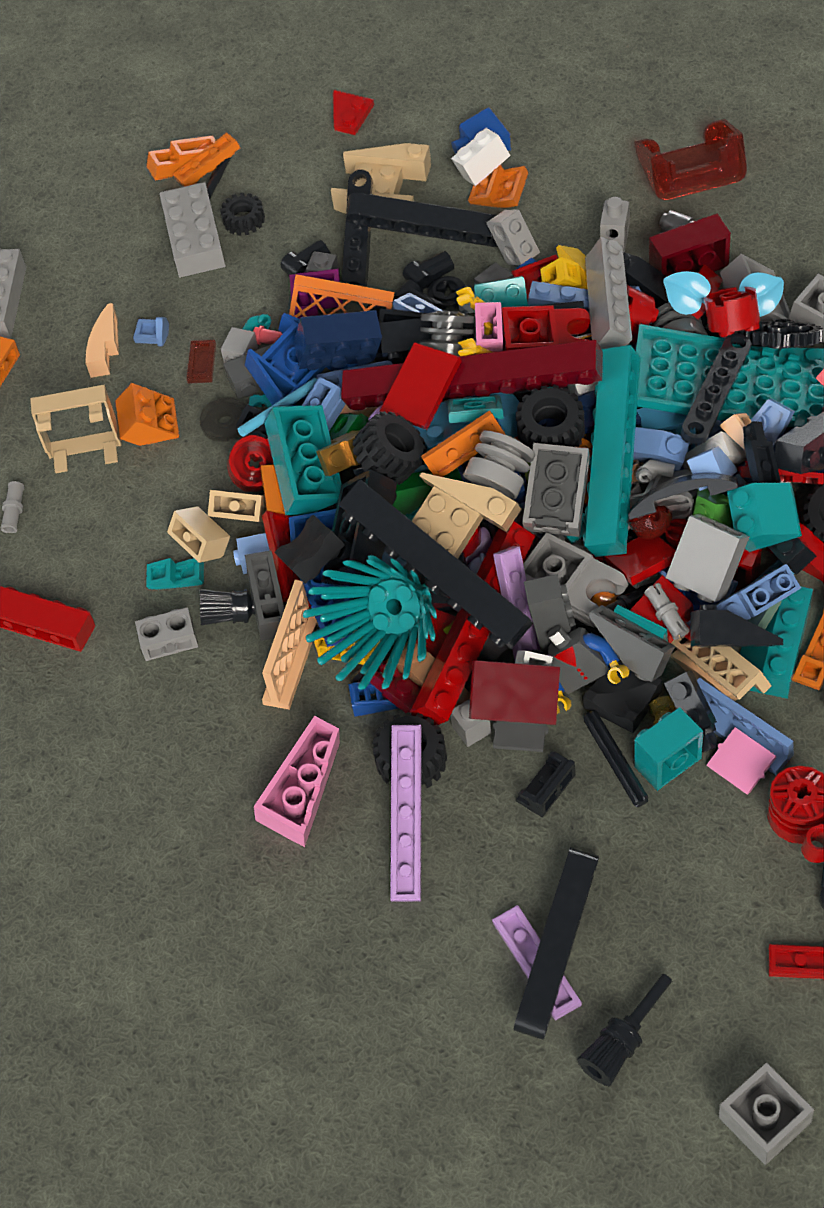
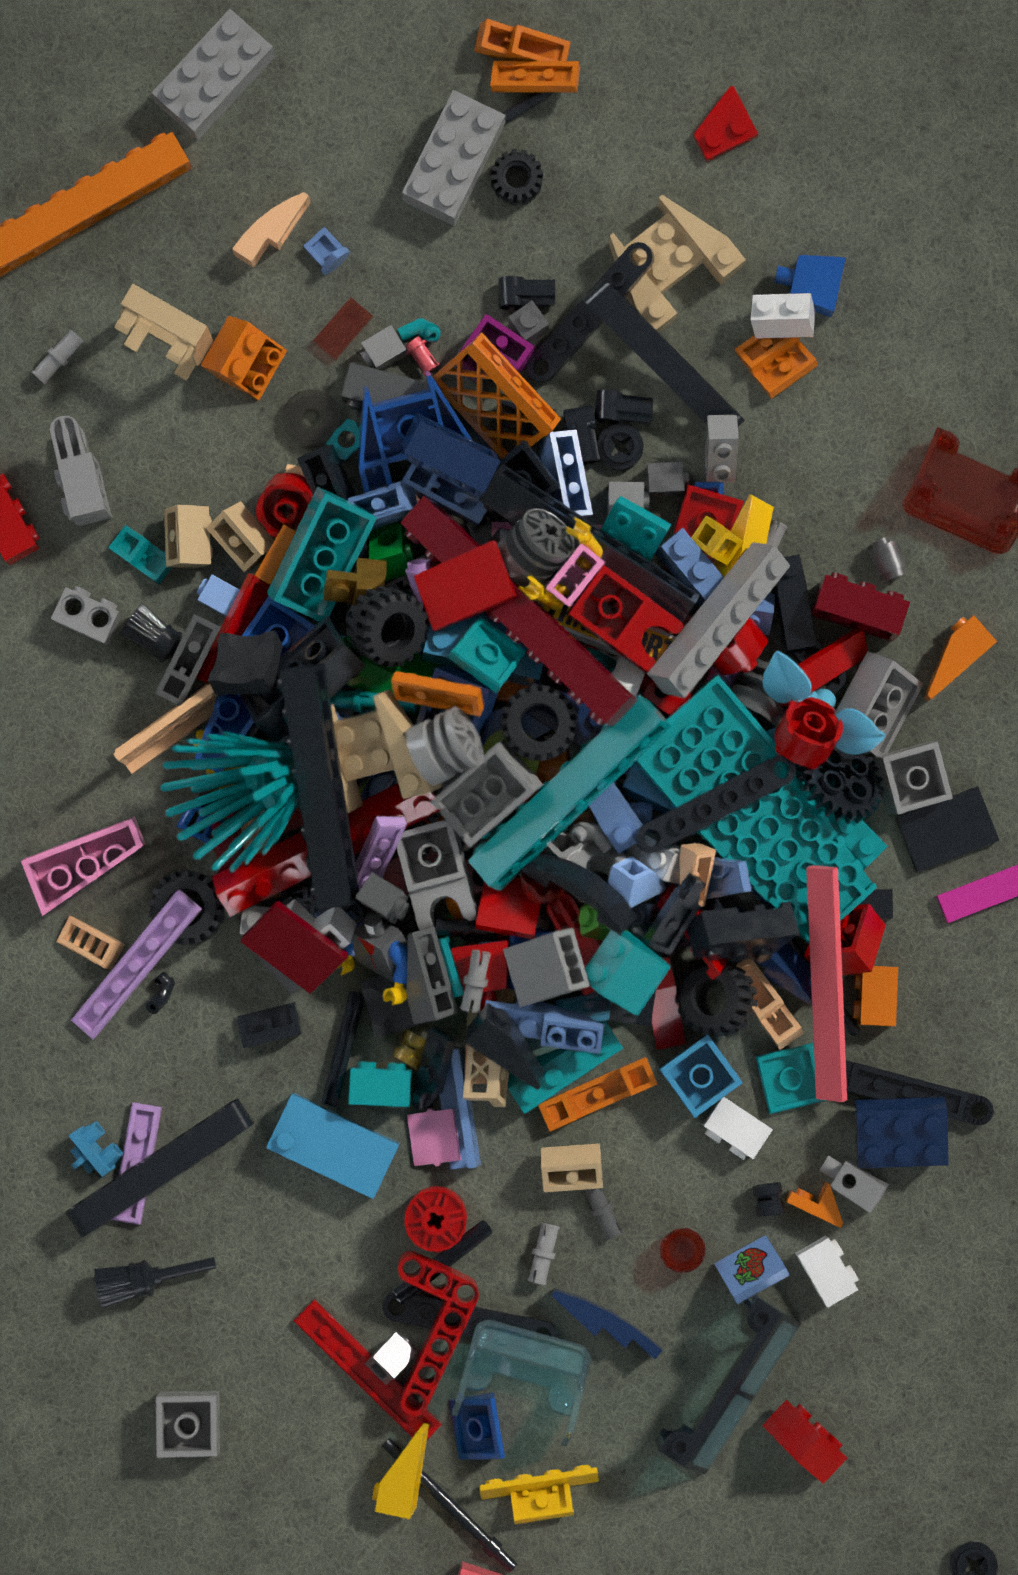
camera: 25 degrees right, 30 degrees up
(87, 549) = (78, 474): none -> light grey brick
(286, 401) = (347, 475): medium azure bar -> none
(371, 843) = (111, 954): none -> light nougat slope
(442, 820) = (162, 997): none -> black arm
(480, 971) = (90, 1154): none -> dark azure hips
(617, 217) = (824, 515): light grey torso -> none
(674, 821) = (333, 1145): none -> dark azure brick
(776, 235) = (960, 651): none -> orange slope

